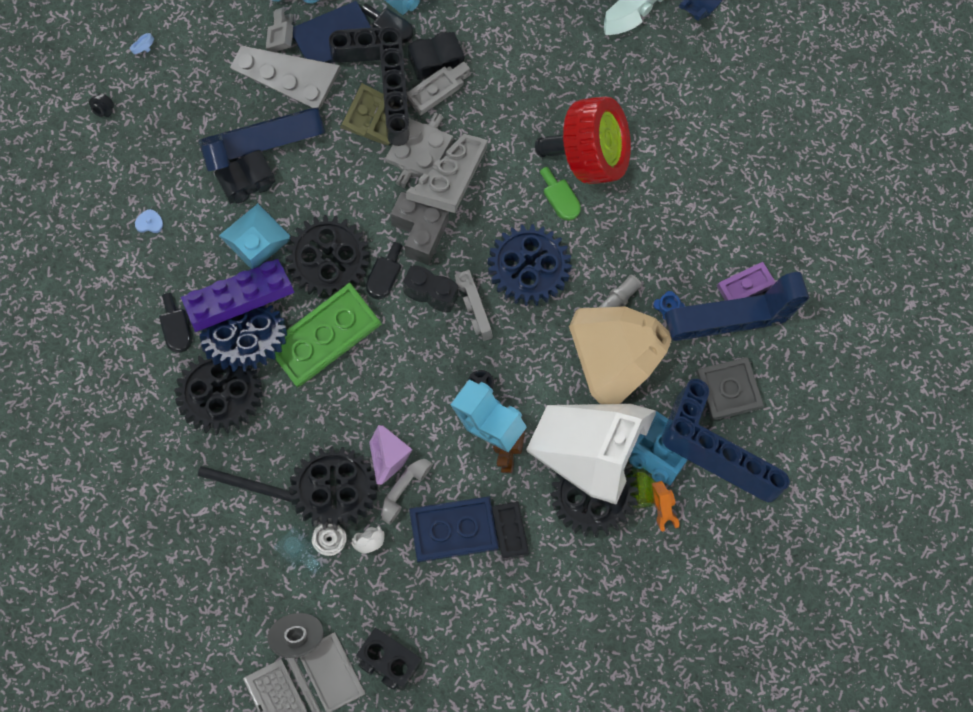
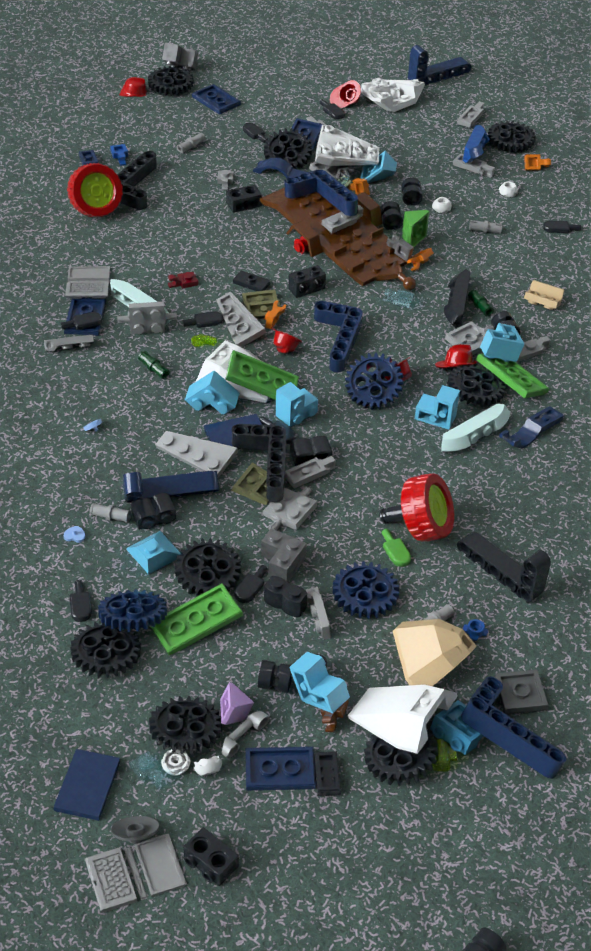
camera: 10 degrees right, 25 degrees down
(101, 105) = (55, 457): black plate -> none
(189, 184) = (110, 512): none -> light grey pin
(228, 580) = (87, 784): none -> dark blue tile
(237, 295) = (132, 584): dark purple plate -> none
(244, 483) = (114, 716): black bar -> none
(280, 34) = (197, 426): light grey plate -> none
(432, 407) = (269, 671): none -> black wheel
(450, 176) = (310, 524): light grey wing -> none
(663, 502) = (458, 763): orange plate -> none
(702, 215) = (524, 581): none -> black beam
(739, 314) = (533, 638): dark blue beam -> none
(746, 283) = (539, 621): medium lavender plate -> none

